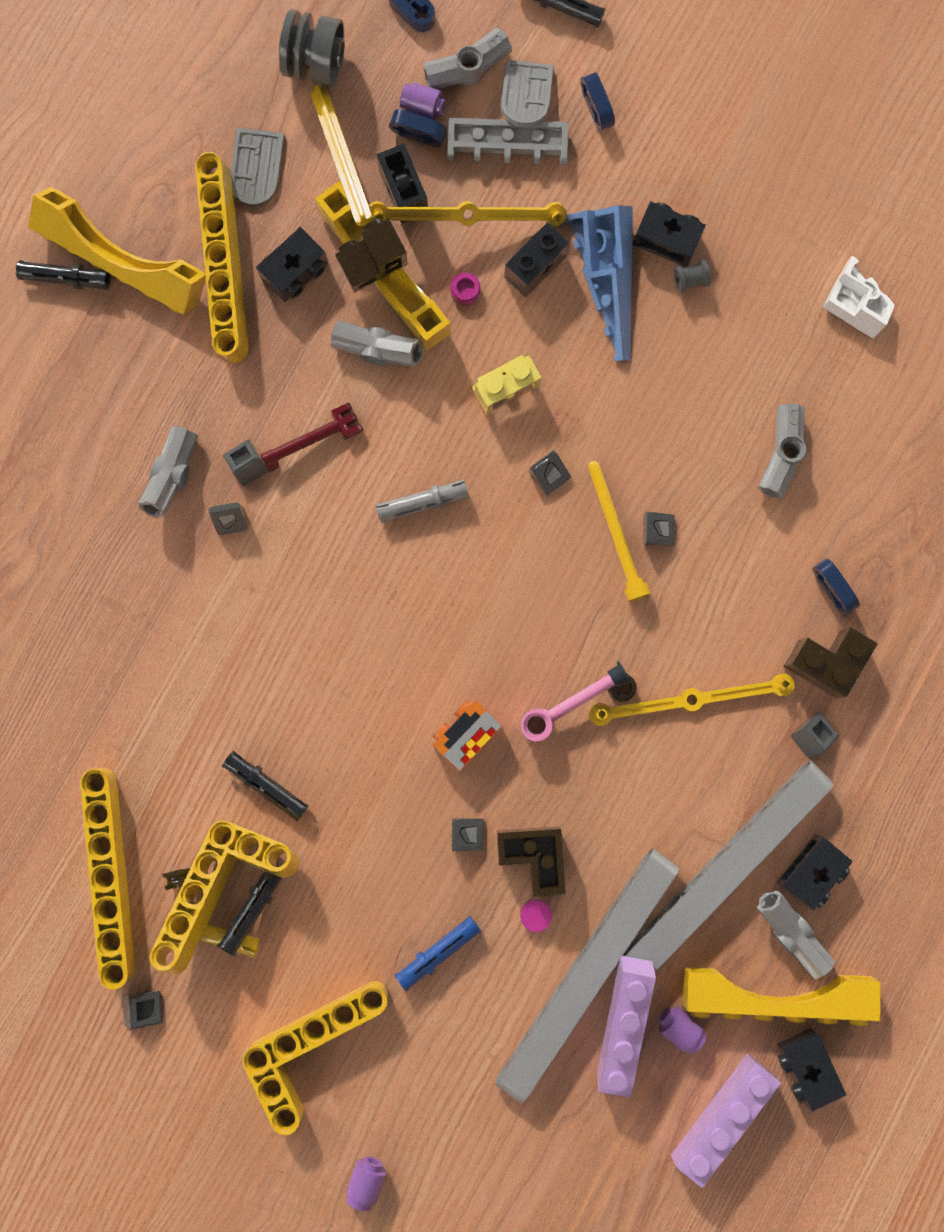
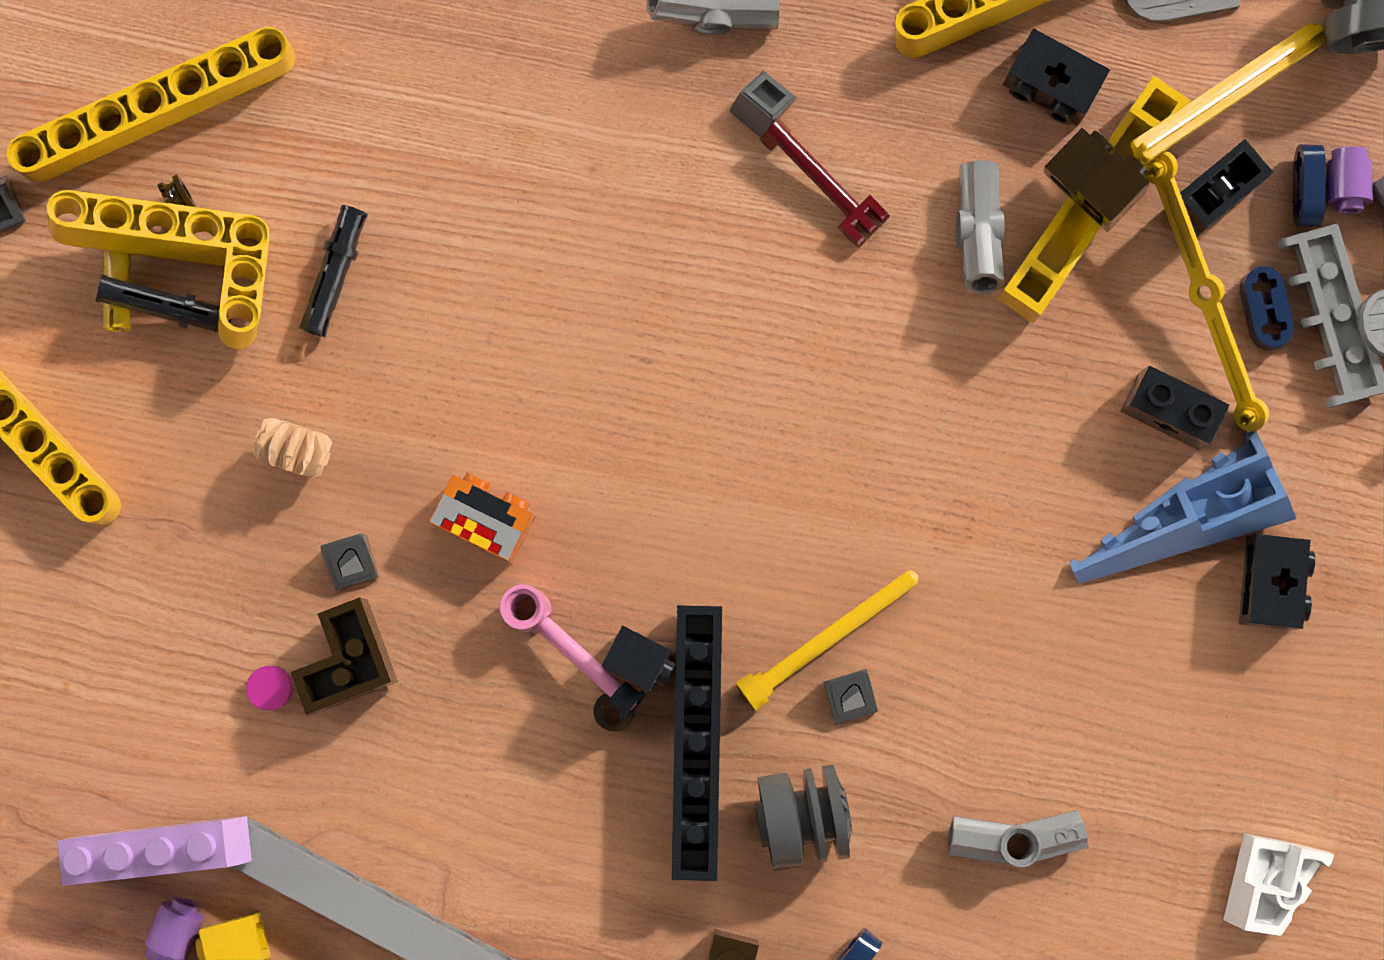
camera: 75 degrees right, 0 degrees up
(228, 518) = (677, 106): dark grey slope -> none
(378, 849) = (292, 447): none -> light nougat gear
(422, 501) = (790, 366): light grey pin -> none
(435, 955) = (141, 542): blue pin -> none
(465, 289) = (1103, 324): dark pink tile -> none
(488, 182) = (1256, 311): none -> dark blue beam
(506, 381) = (986, 419): light yellow window -> none
(549, 472) = (880, 520): dark grey slope -> none
(586, 976) = (210, 781): light grey beam -> none
(596, 658) = (639, 659): none -> black brick
(662, 637) = (697, 743): none -> black brick
(692, 276) = (1225, 633): dark grey bush -> none
(731, 584) = (803, 817): none -> dark grey wheel
(780, 685) = (686, 931): yellow piece -> none

